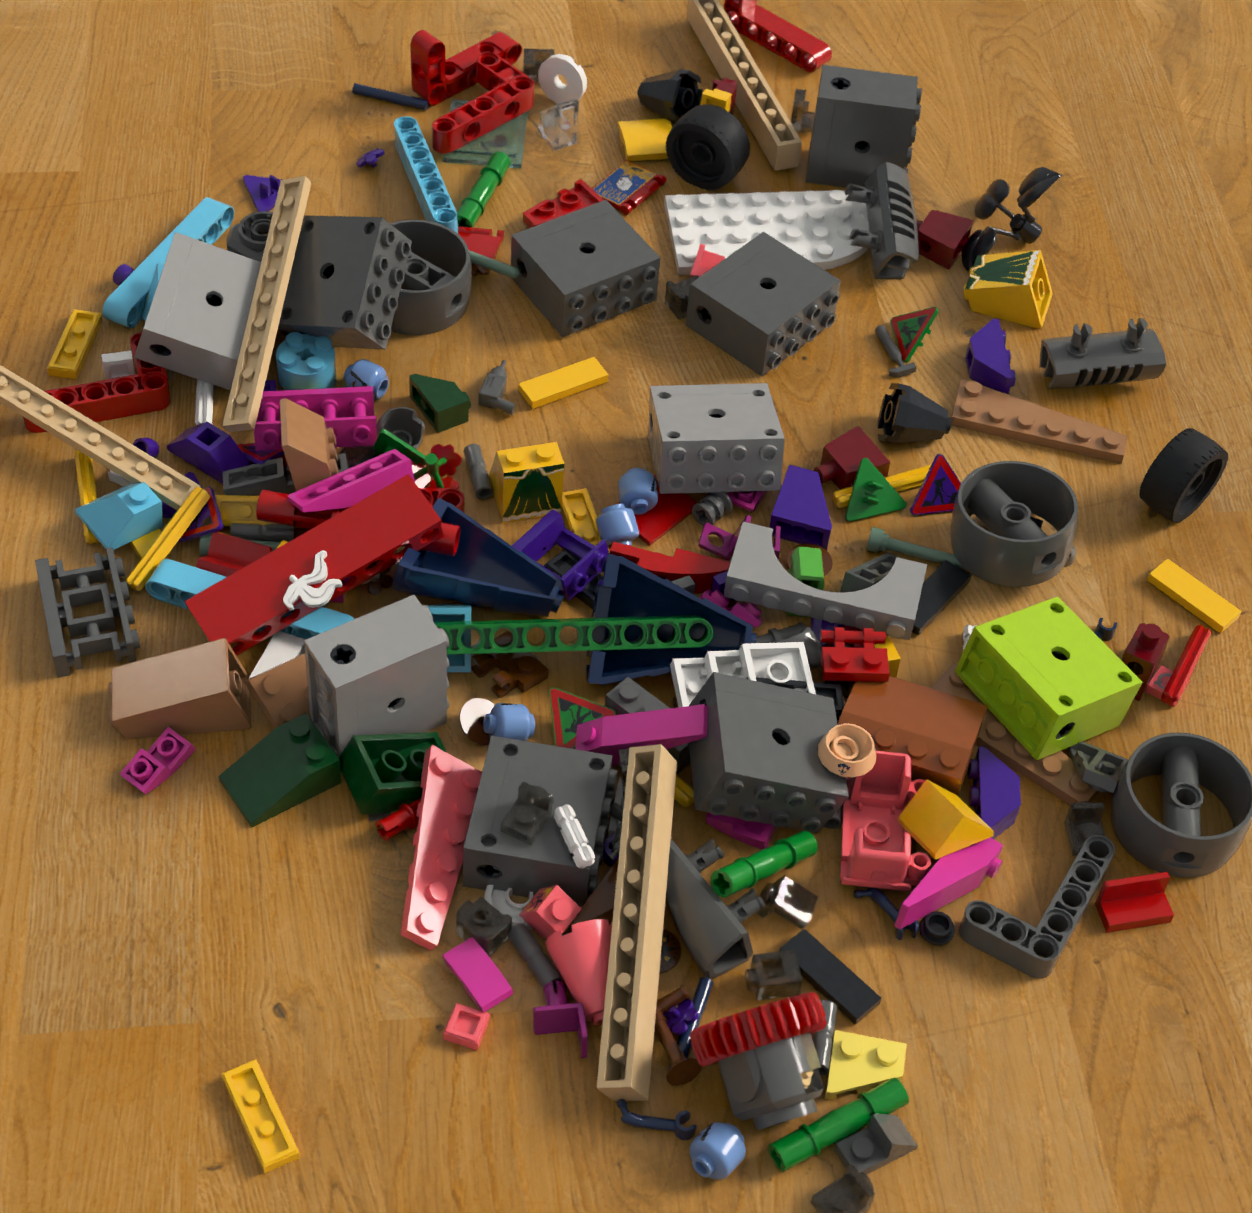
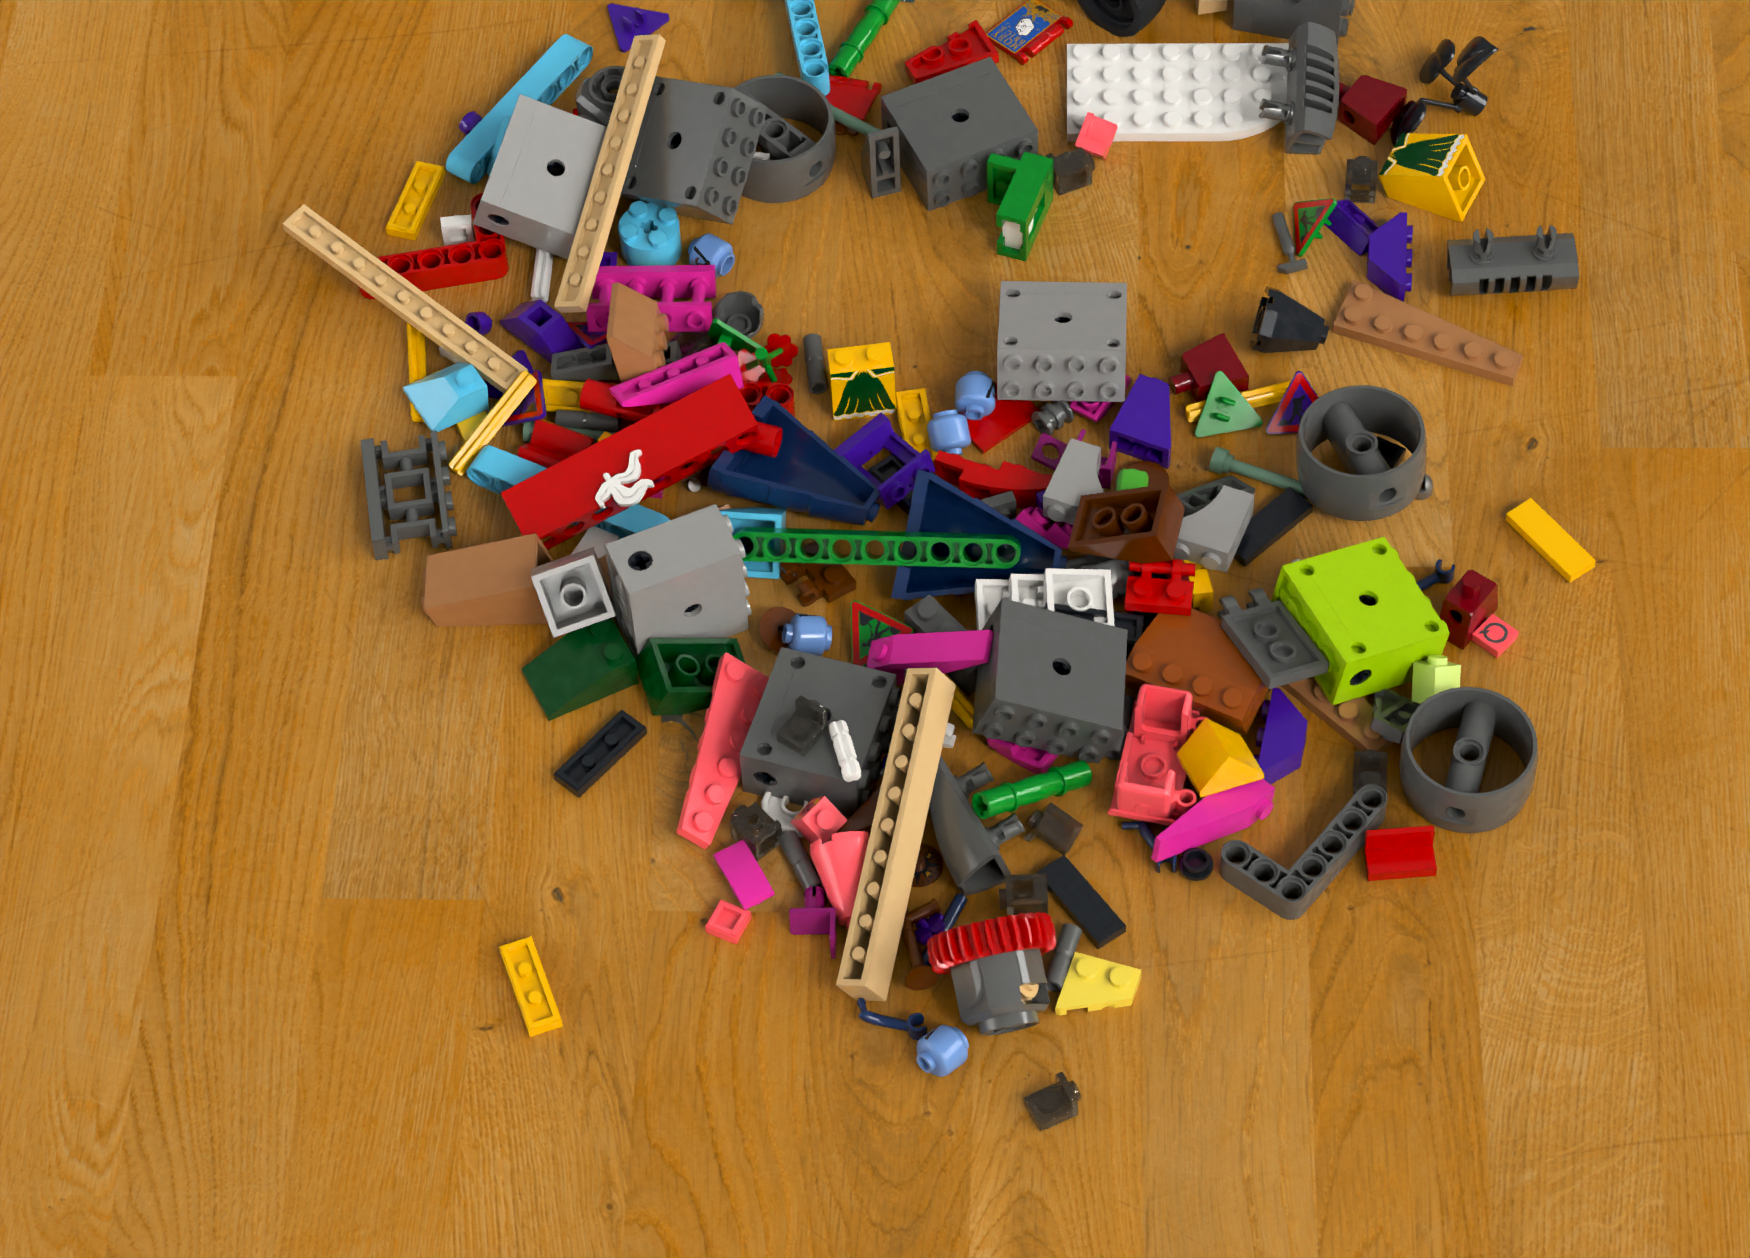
camera: 15 degrees right, 5 degrees up
(157, 764) = (467, 651): dark pink slope -> none
(270, 693) = (573, 592): none -> light grey brick
(309, 858) = (600, 753): none -> black tile
(399, 820) = (687, 724): red axle -> none
(439, 401) = (785, 284): dark green slope -> none
(493, 390) = (845, 270): dark grey piece -> none
(517, 291) = (882, 162): none -> dark grey slope
(563, 382) = (920, 266): yellow tile -> none
(650, 313) = (1024, 197): none -> green brick
(762, 303) = (1147, 183): dark grey gear -> none
(818, 596) = (1129, 524): none -> reddish brown slope
(837, 1124) = (1060, 1036): green piece -> none
(847, 750) = (1127, 685): light nougat hat -> none
(877, 1144) = (1099, 1057): dark grey slope -> none
(949, 288) = (1361, 172): none -> clear smoke brick
(949, 336) = (1351, 226): none -> dark purple slope
(972, 700) = (1271, 640): none -> dark grey tile
(1129, 729) = (1434, 677): none -> yellowish green brick
(1183, 475) = (1562, 407): black wheel -> none
(1185, 665) = (1516, 615): red axle -> none

